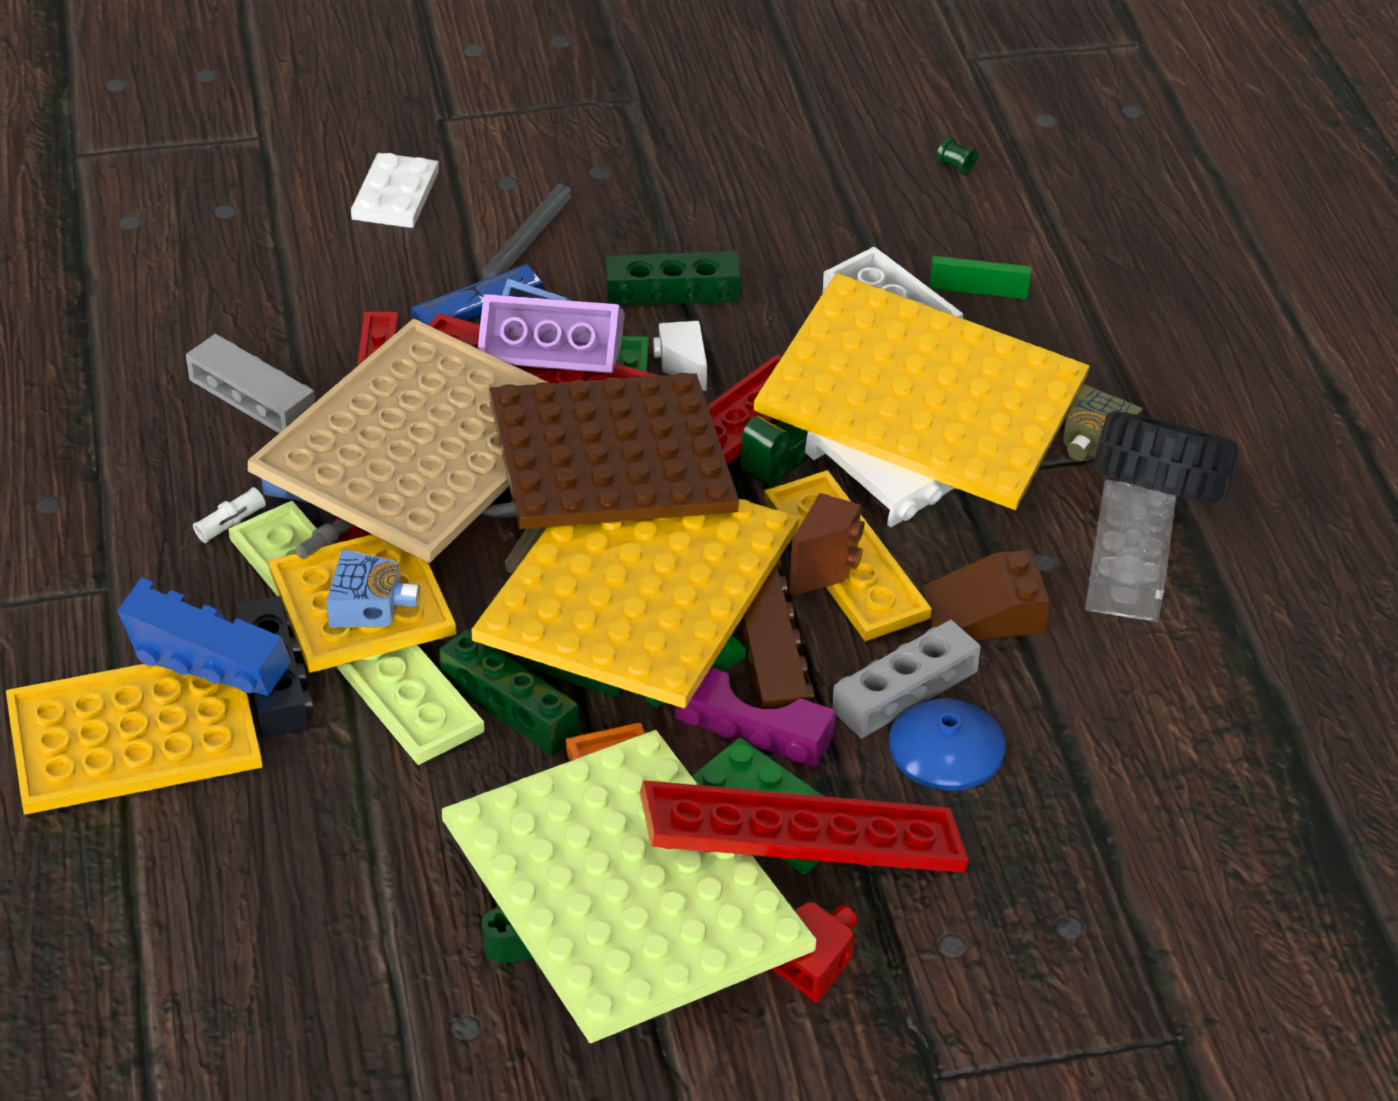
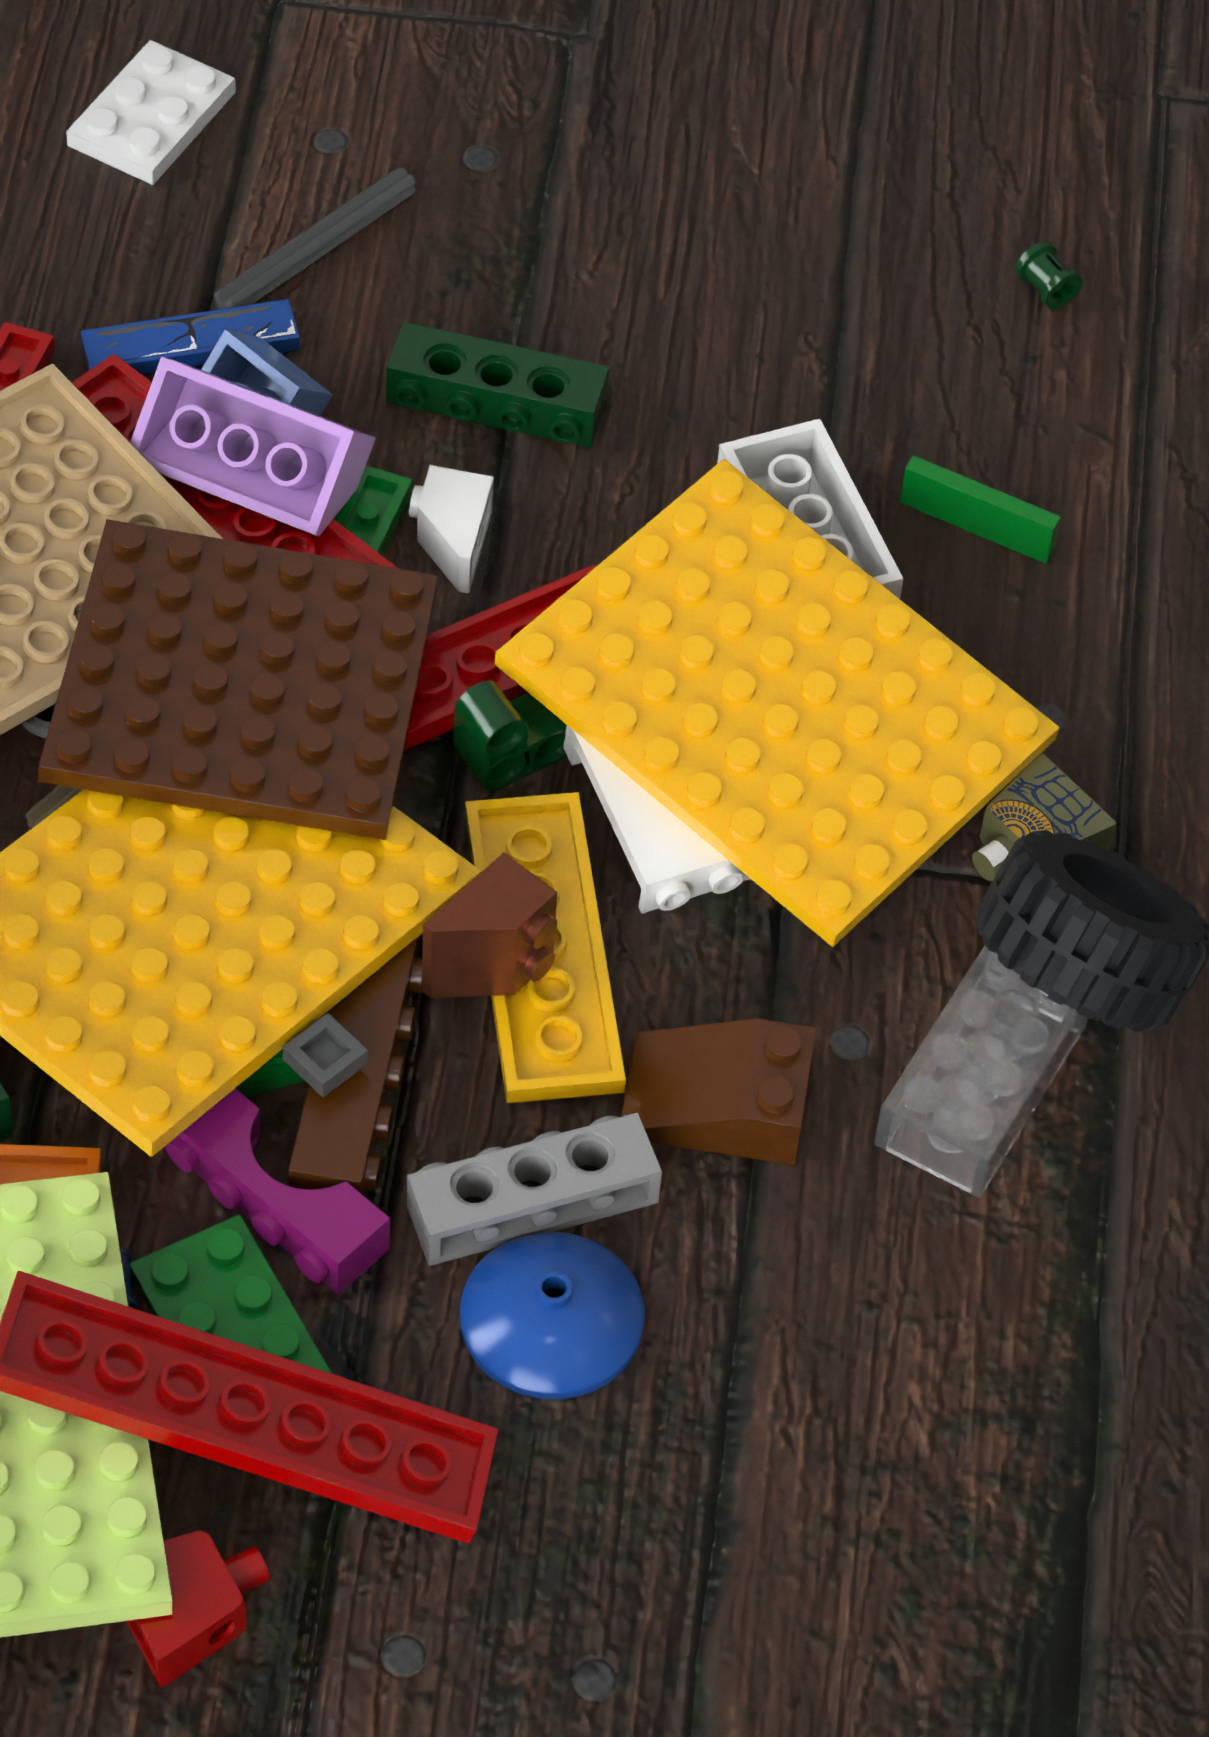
camera: 15 degrees right, 10 degrees up
(757, 632) = (325, 1055): none -> dark grey plate

